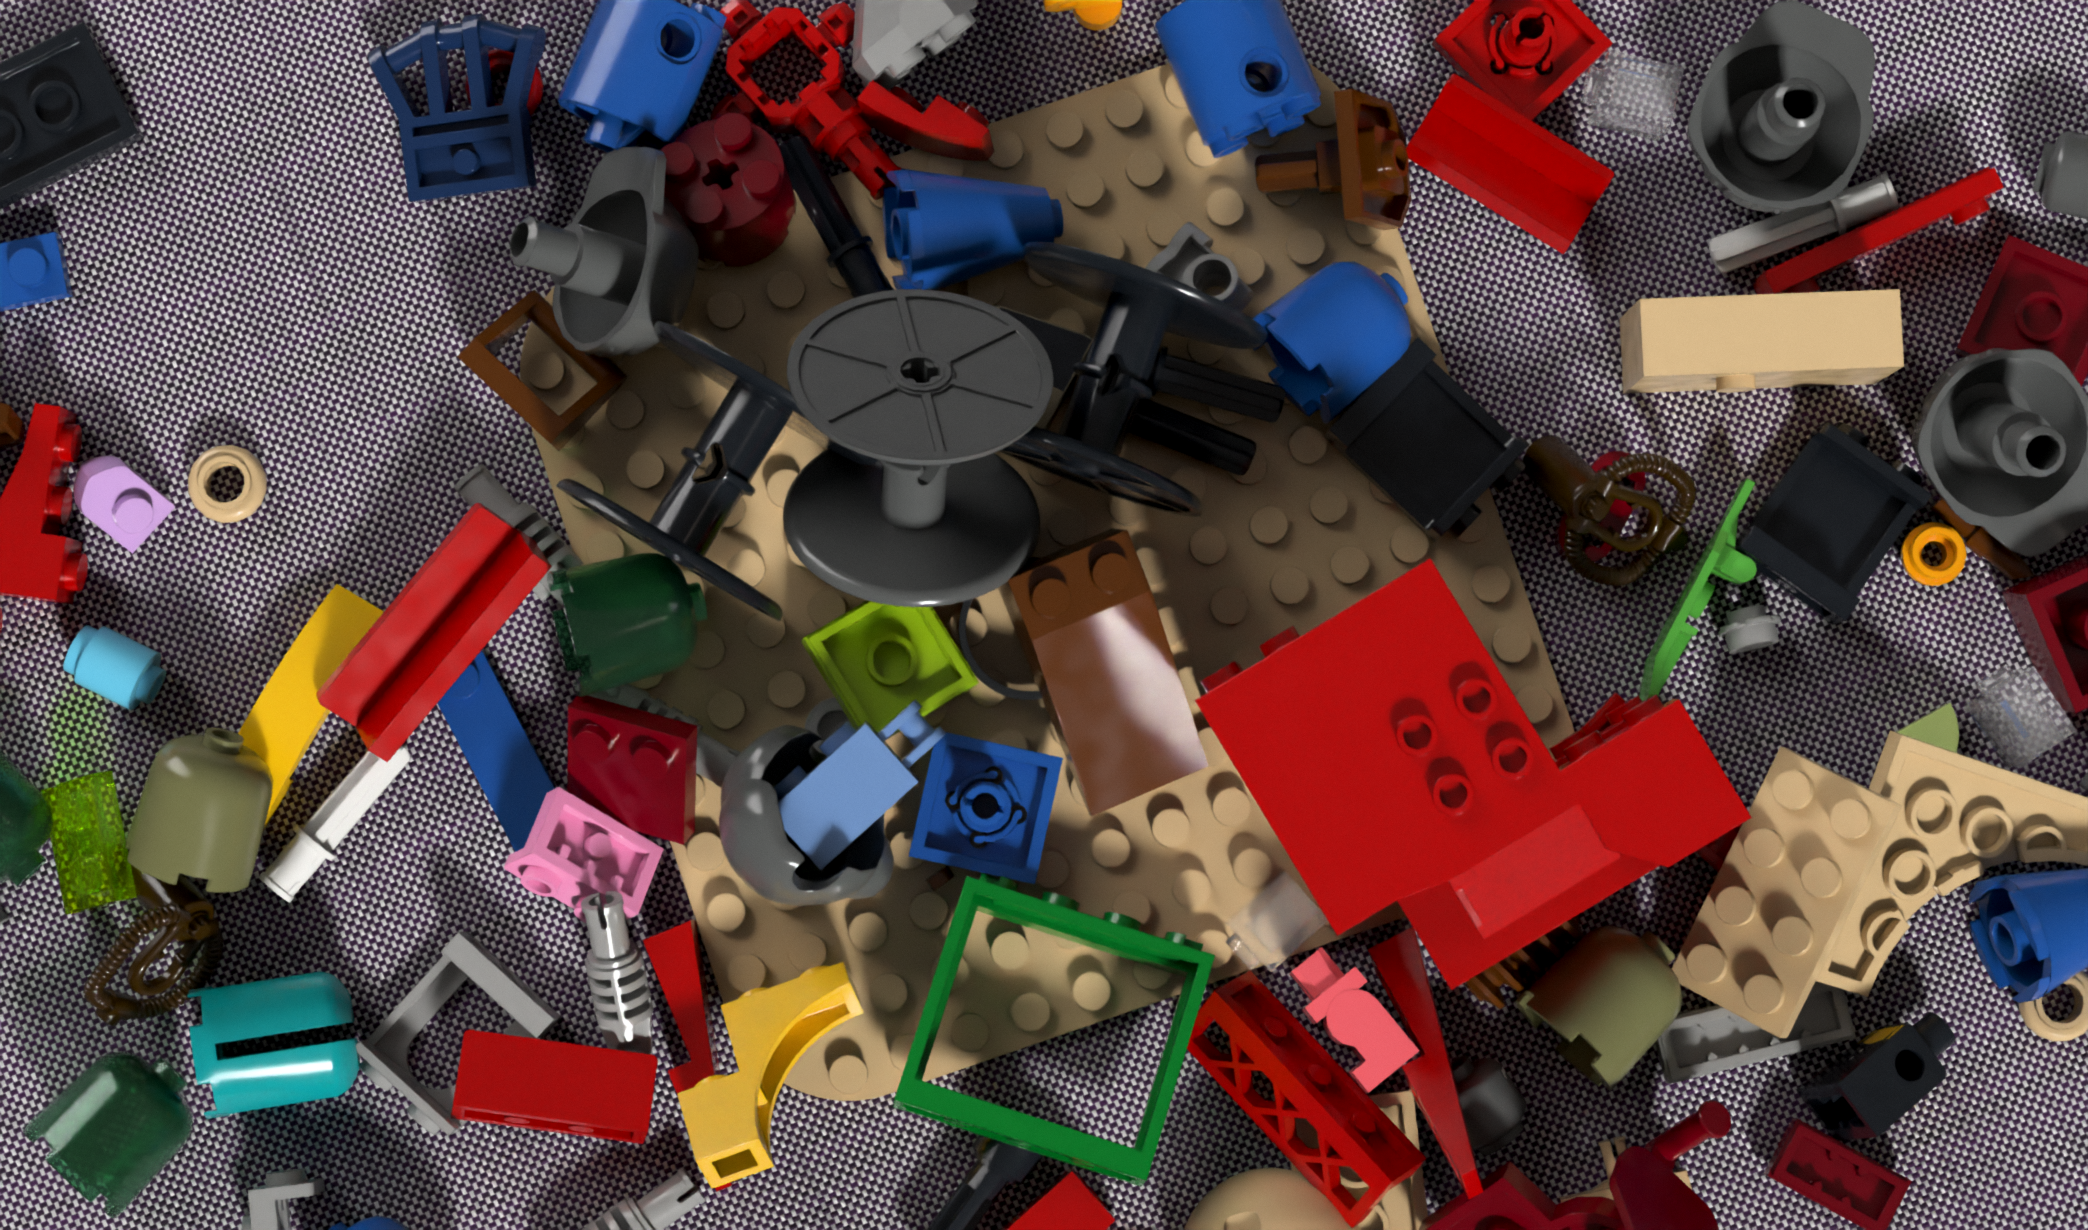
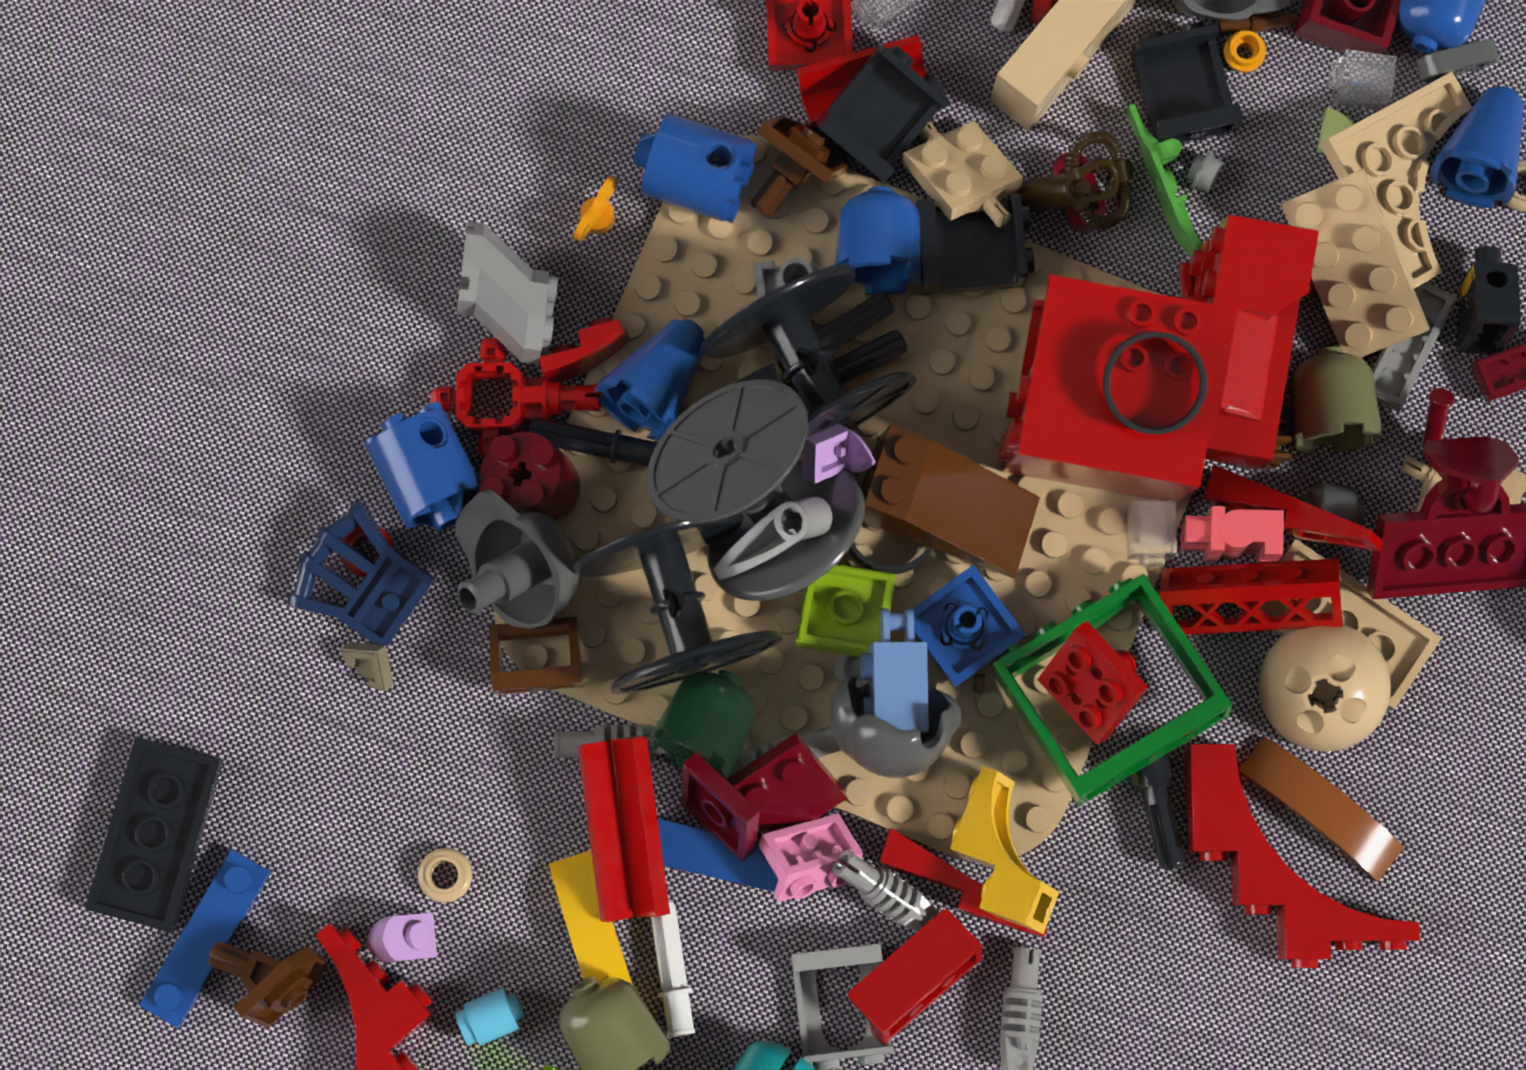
camera: 50 degrees left, 5 degrees down
(385, 199) = (370, 662): none -> dark tan tile
(546, 715) = (719, 807): none -> dark red plate
(887, 513) = (775, 534): none -> light grey piece
(1032, 1005) = (1099, 676): none -> red plate
(1039, 492) = (834, 450): none -> lavender plate
(1350, 827) = (1203, 382): none -> black tyre
(1489, 209) = (882, 110): none -> black panel
(1503, 359) = (963, 172): none -> tan plate

